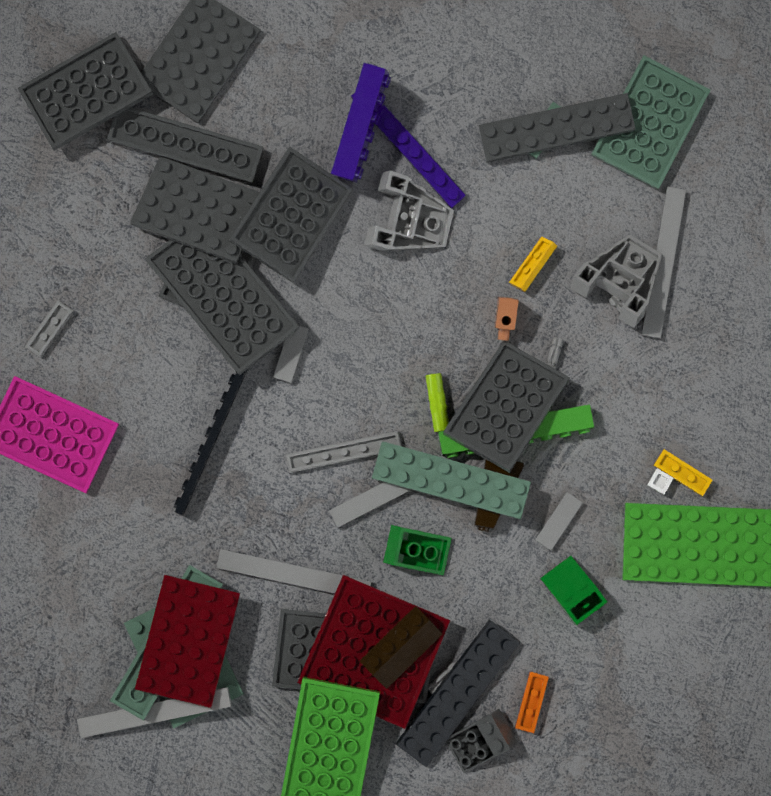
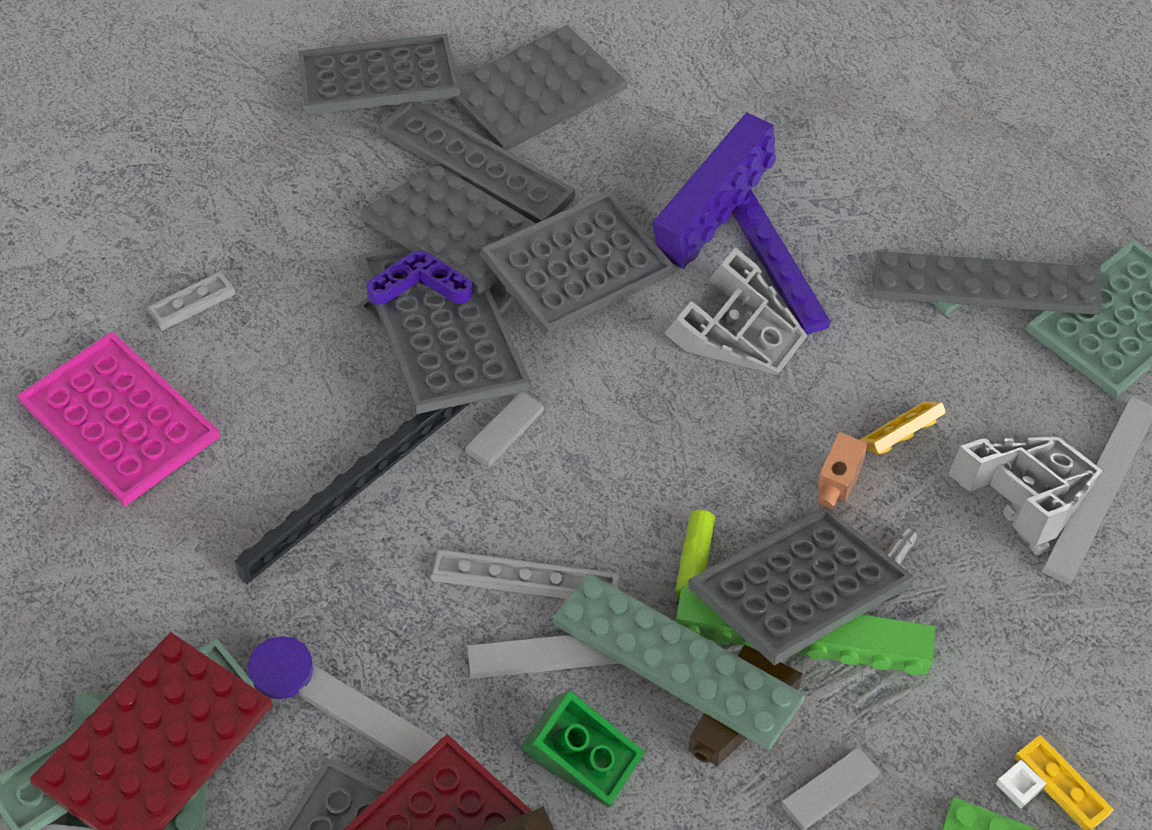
camera: 25 degrees right, 30 degrees down
(195, 261) = (419, 267): none -> dark purple beam
(230, 565) = (280, 667): none -> dark purple tile

